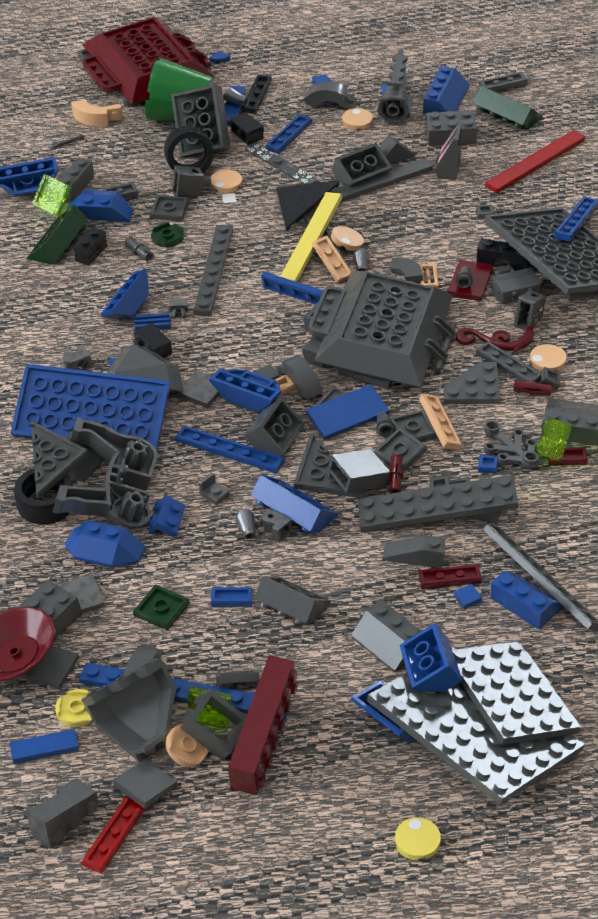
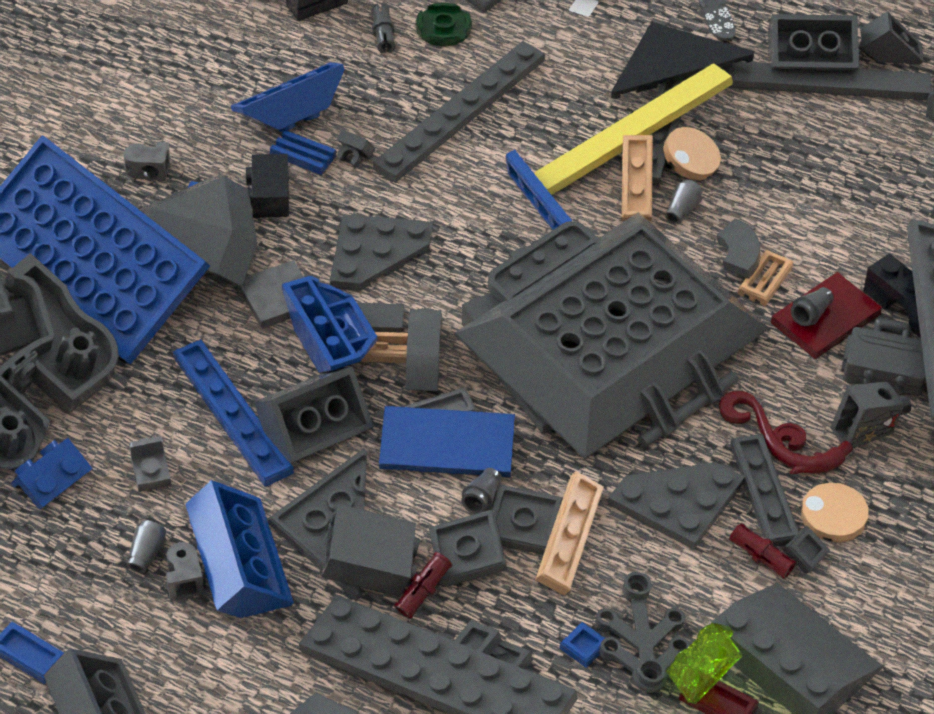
camera: 30 degrees right, 5 degrees up
(231, 346) = (376, 248): none -> dark grey plate

